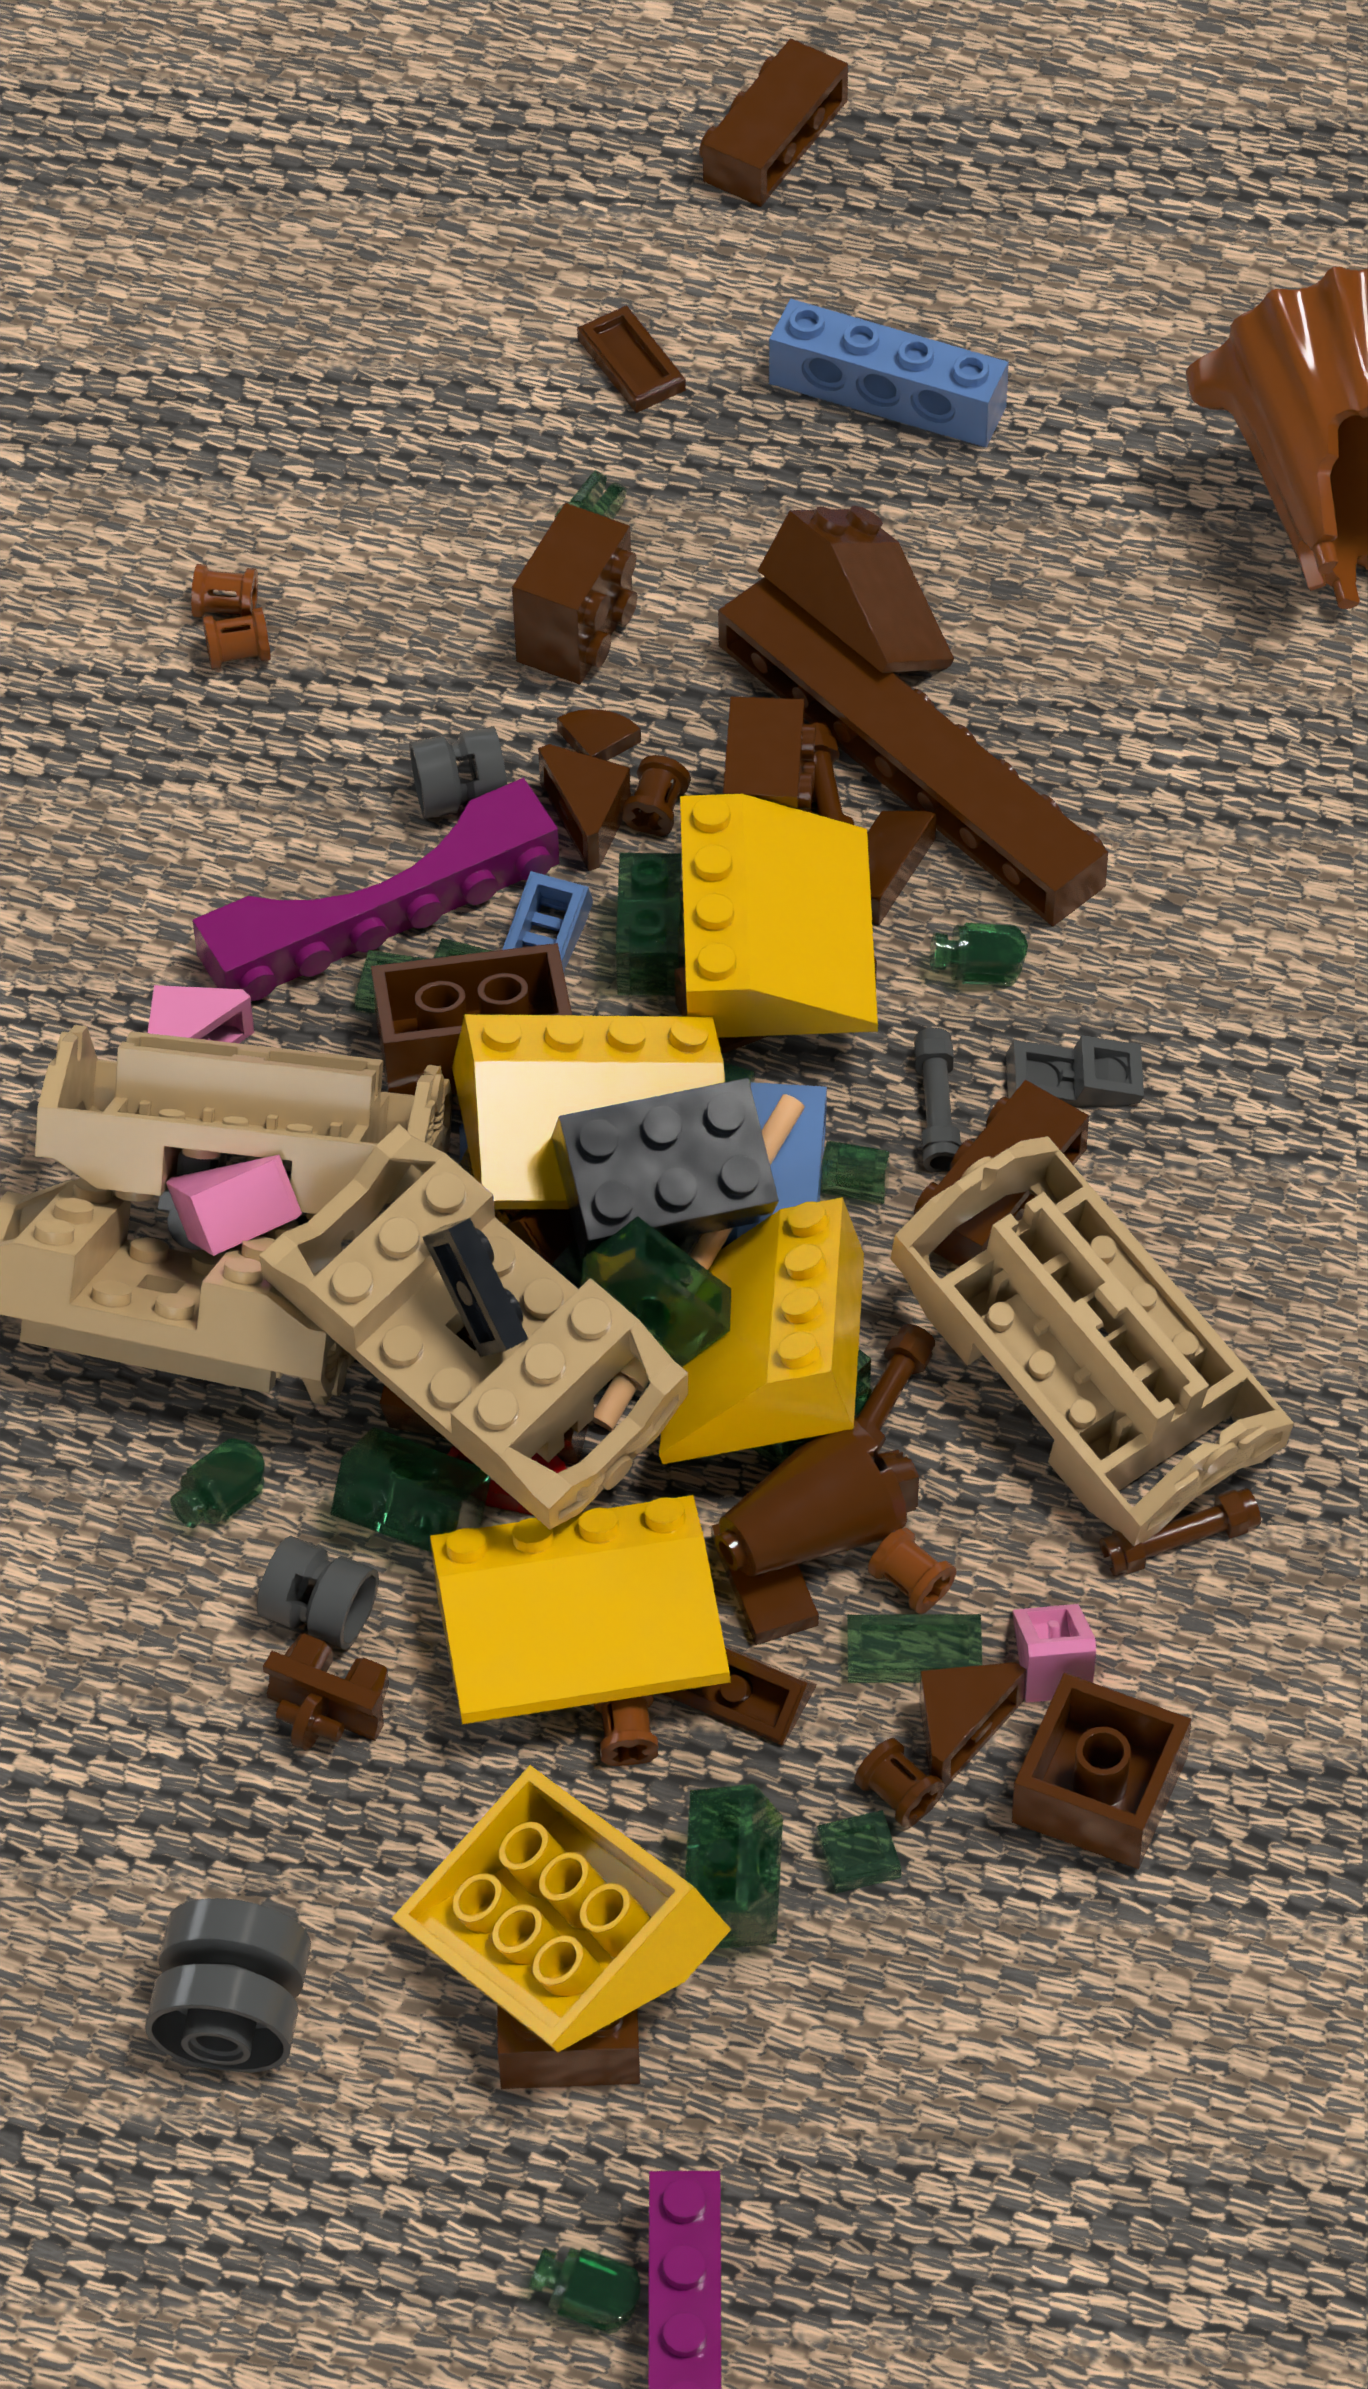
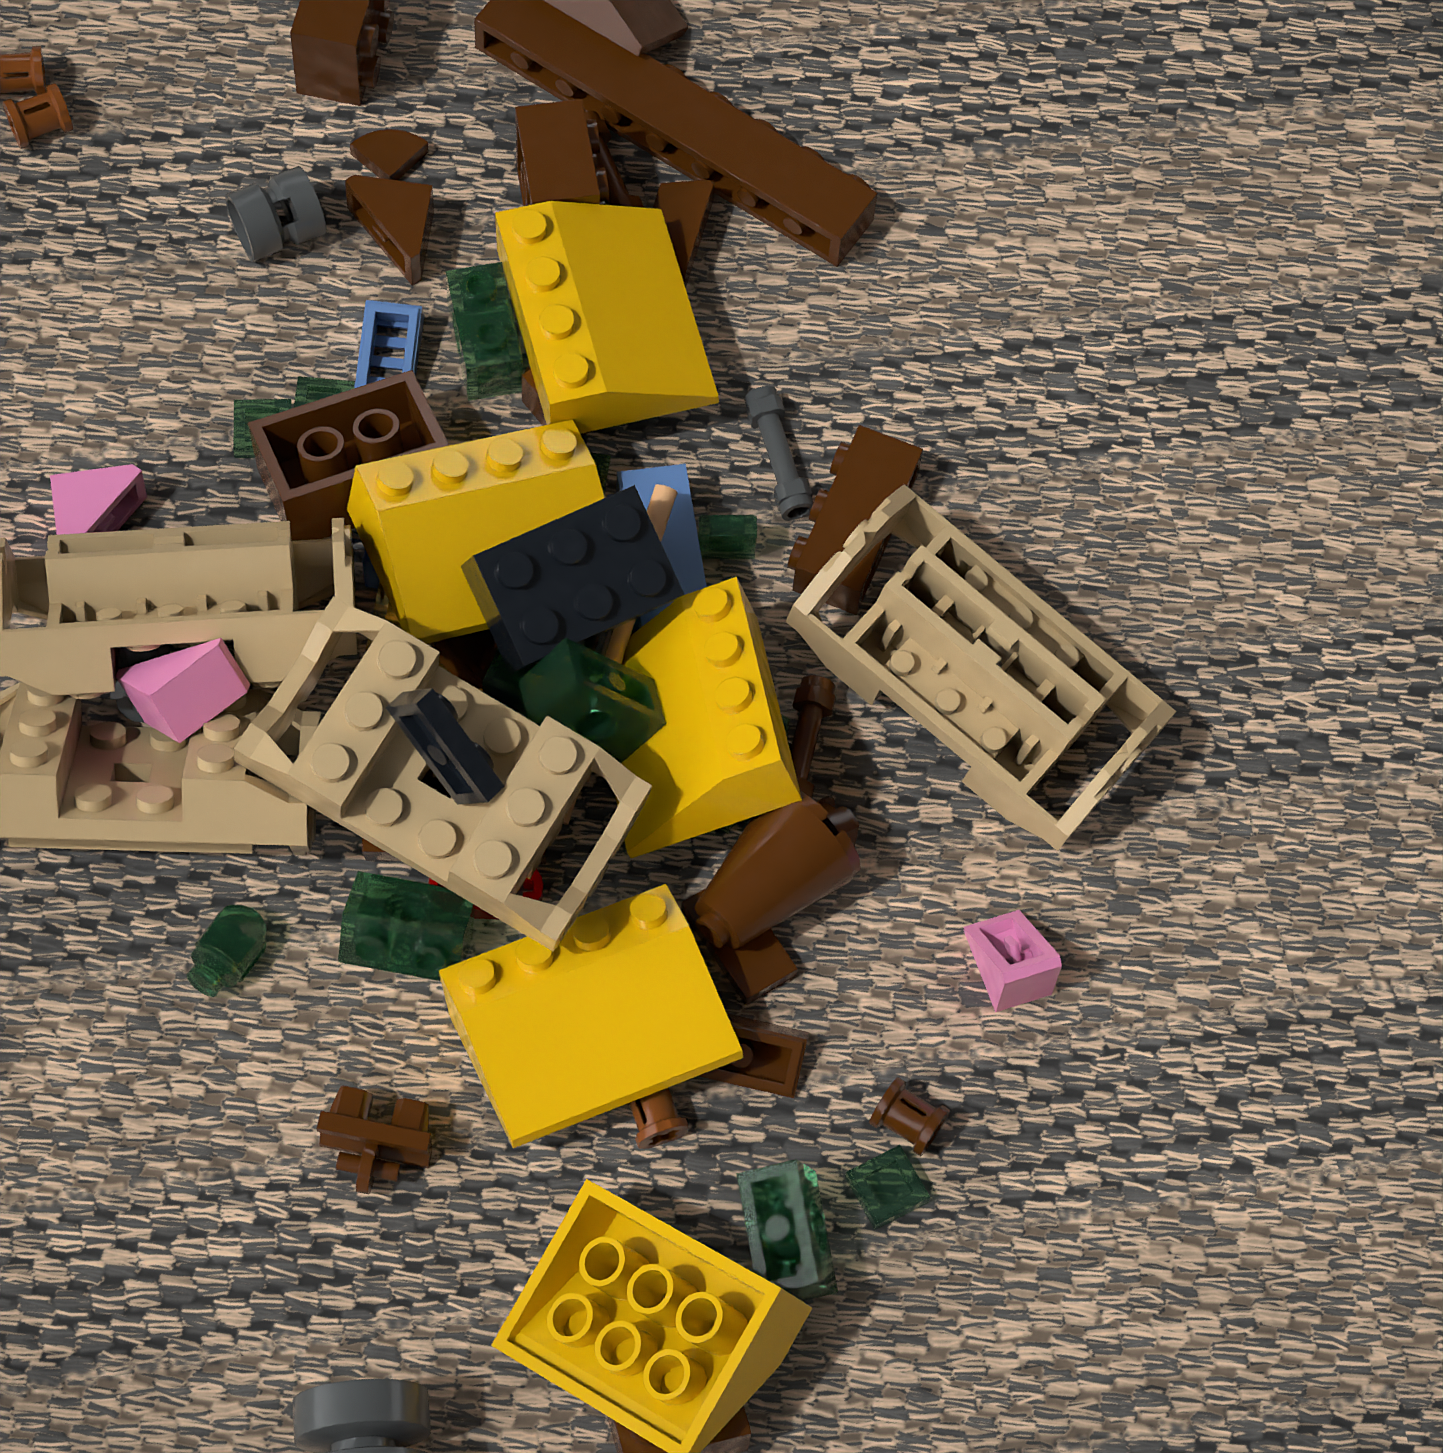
camera: 20 degrees left, 10 degrees up
(272, 941) = (141, 409): magenta arch -> none
(311, 1590) = (367, 1044): dark grey wheel -> none
(656, 795) = (458, 204): reddish brown bush -> none
(903, 1645) = (887, 982): clear green tile -> none
(912, 1570) = (870, 910): dark orange bush -> none
(964, 1710) = (945, 1038): reddish brown slope -> none
(980, 953) = (783, 306): clear green arm -> none
(1090, 1075) = (900, 406): dark grey slope -> none
(1101, 1770) = (1087, 1072): reddish brown brick -> none
(1231, 1512) = (1131, 798): reddish brown bar -> none

